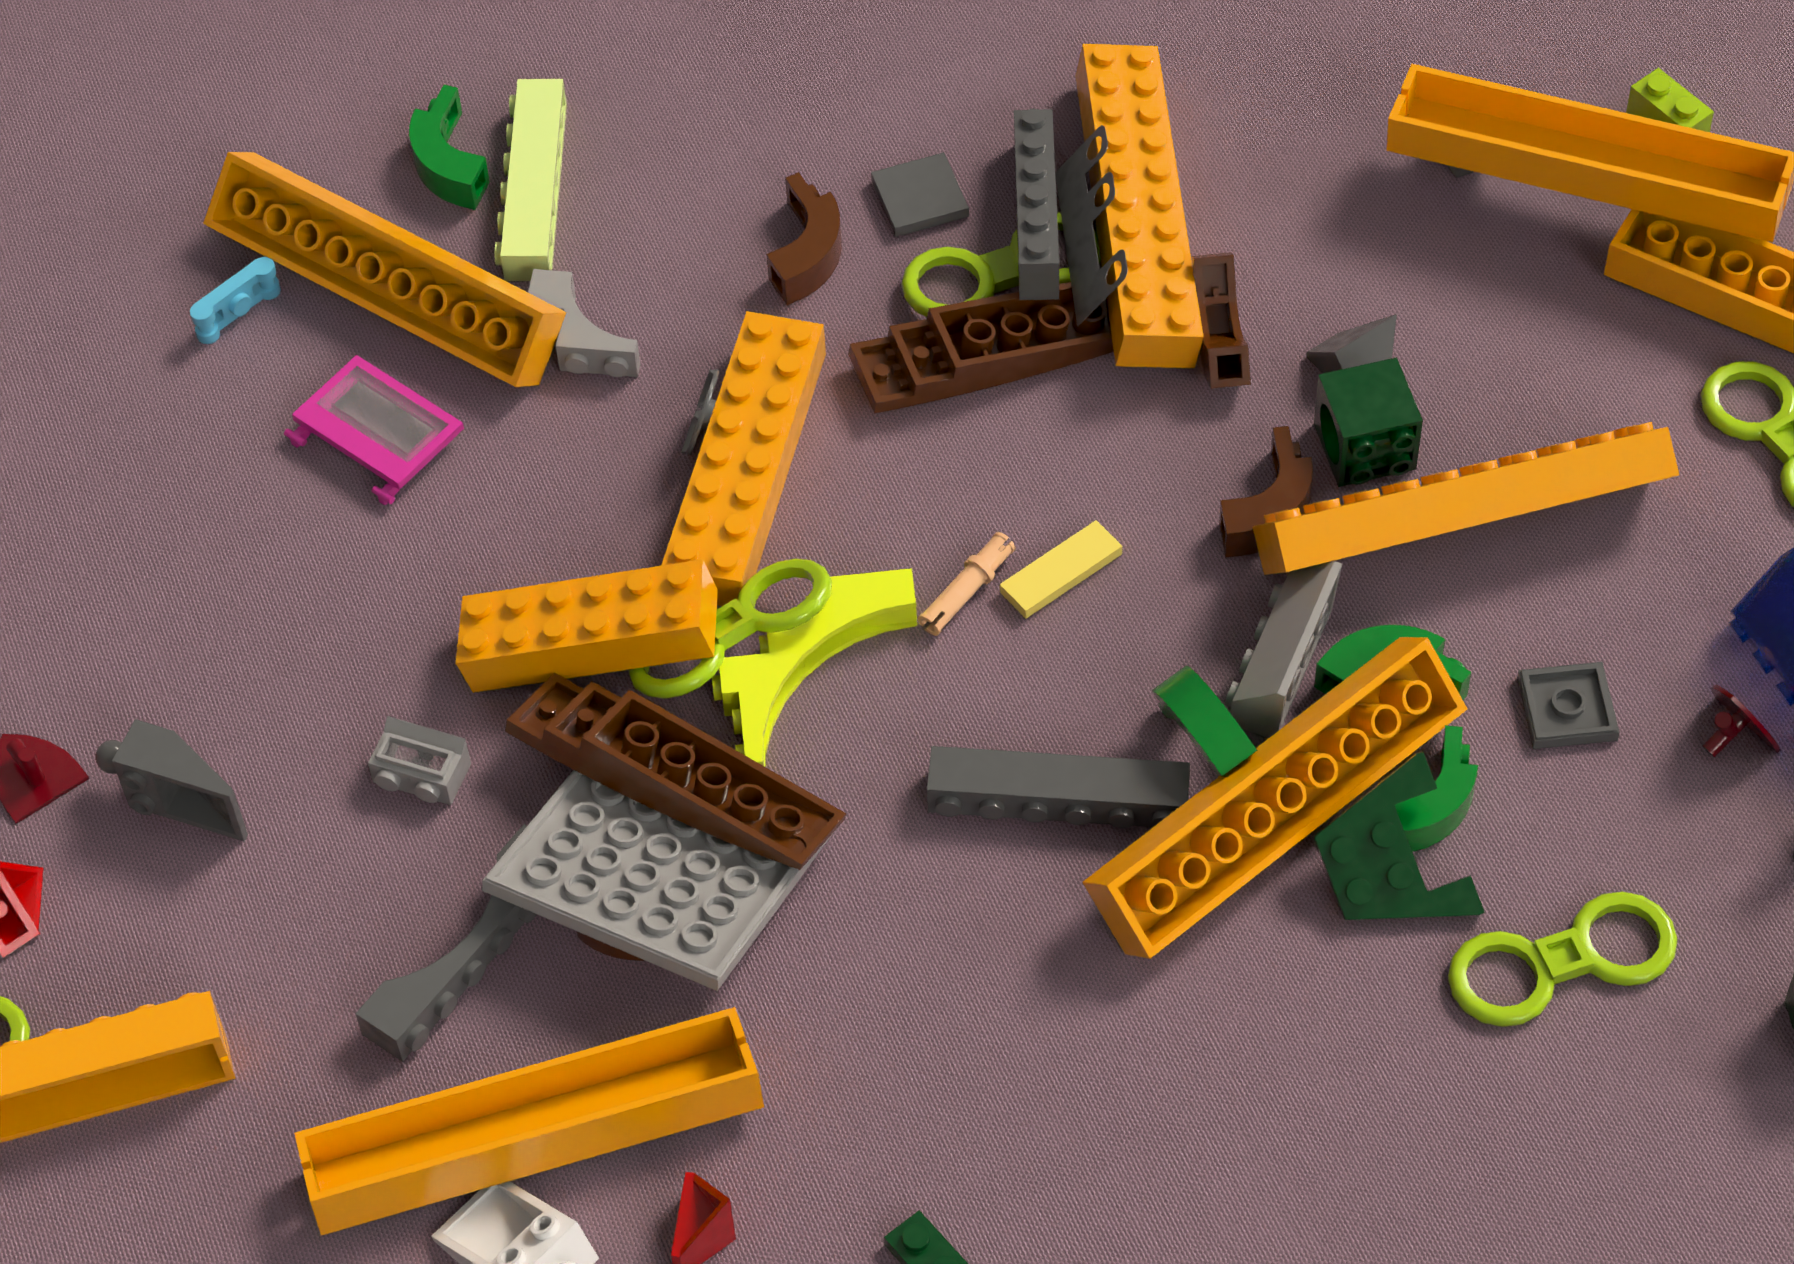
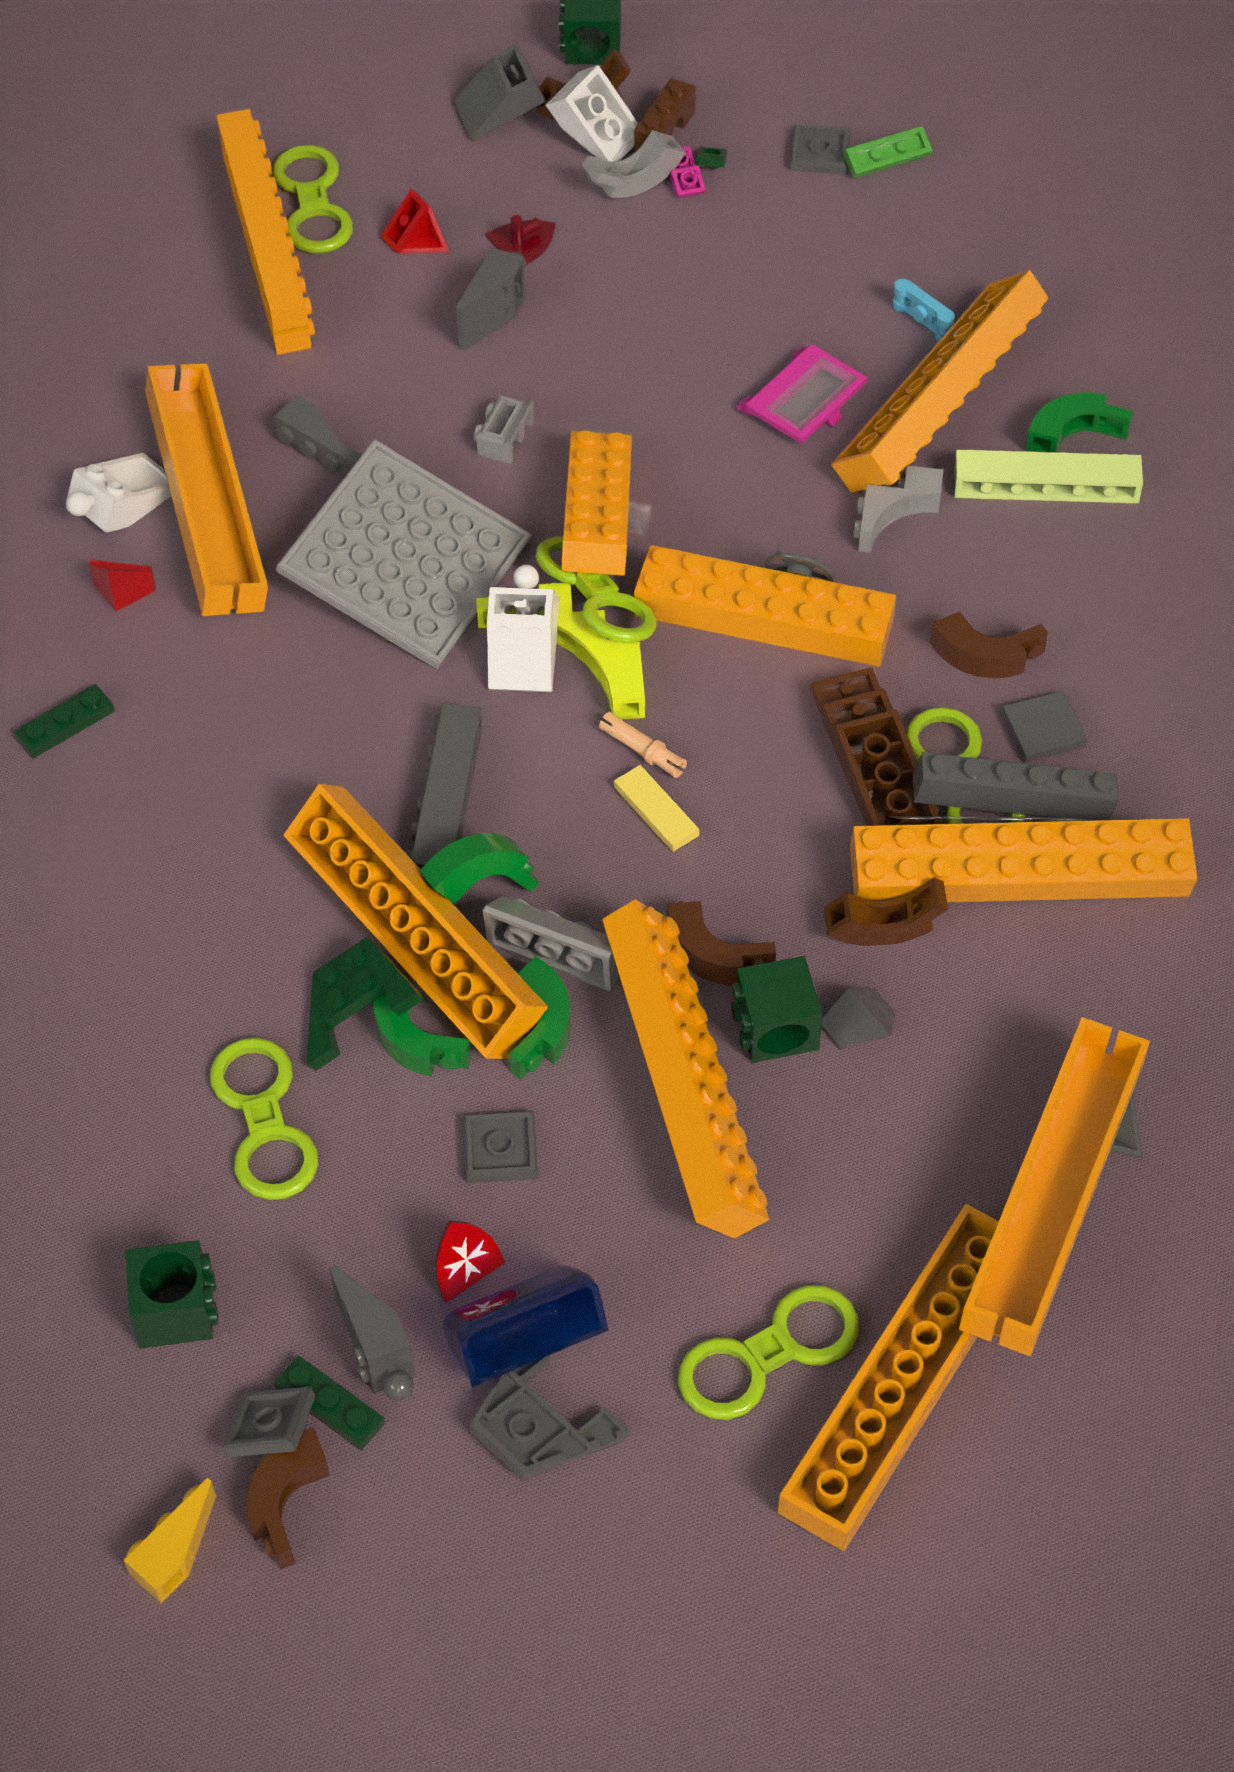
camera: 90 degrees right, 0 degrees up
(674, 769) = (470, 557): reddish brown slope -> none
(812, 699) = (524, 642): none -> white slope
(1665, 100) = (1149, 1291): lime brick -> none

